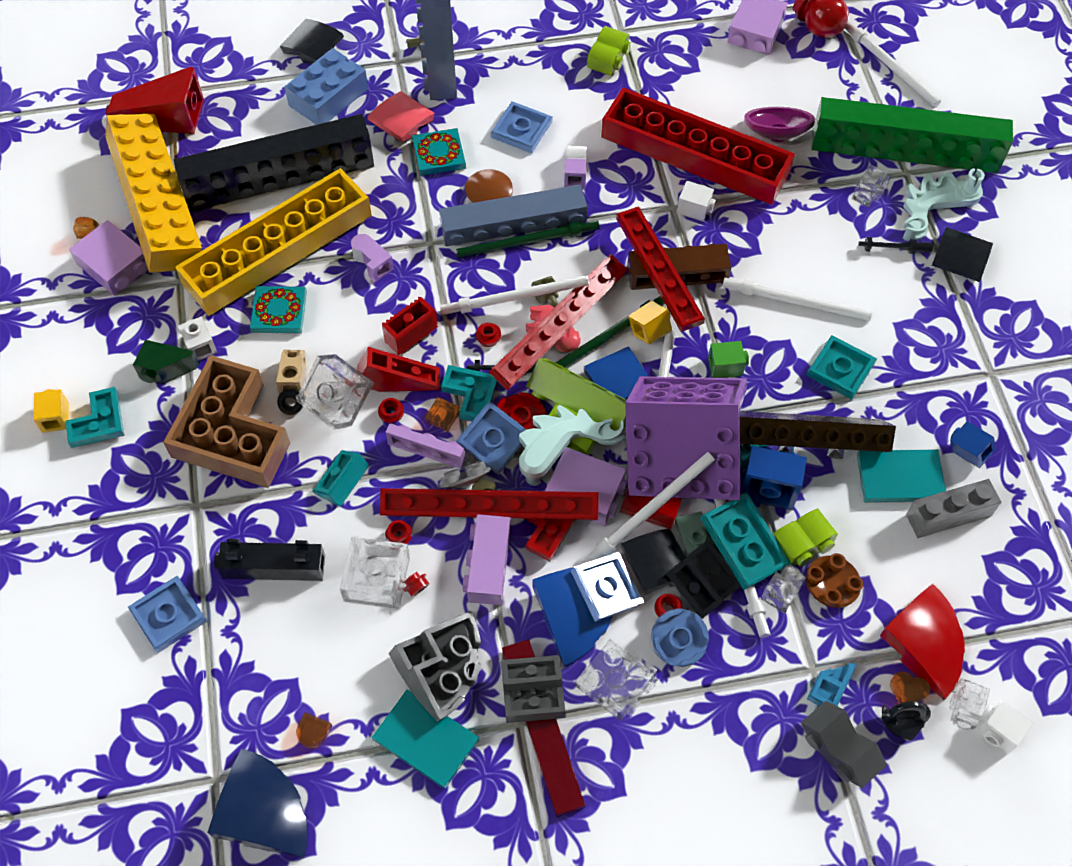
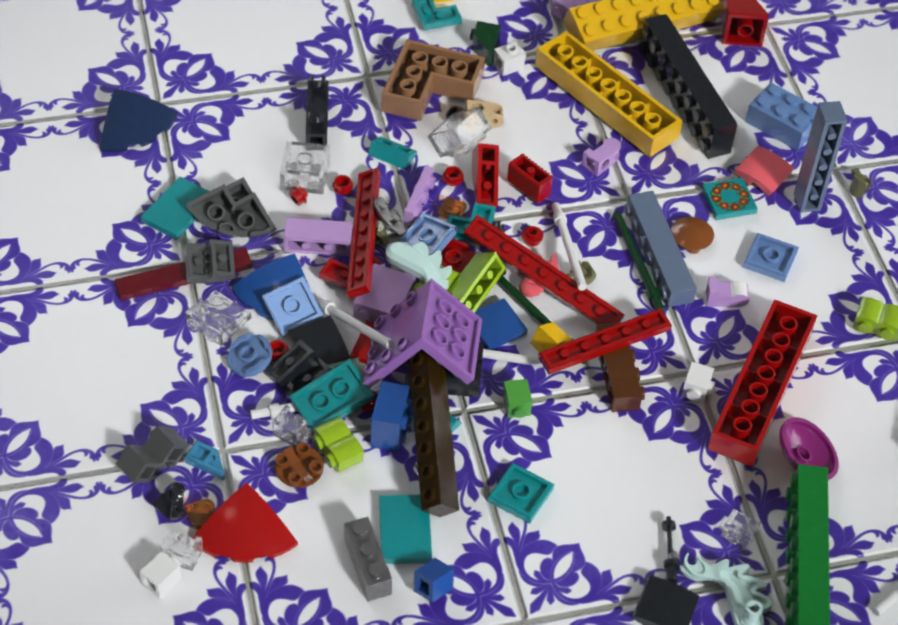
camera: 85 degrees right, 10 degrees down
(167, 614) = (279, 67): medium blue tile -> none
(278, 309) = (545, 105): tile -> none
(311, 40) = (851, 103): black slope -> none
(312, 731) = (188, 147): clear orange tile -> none
(748, 288) = (602, 424): white bar -> none

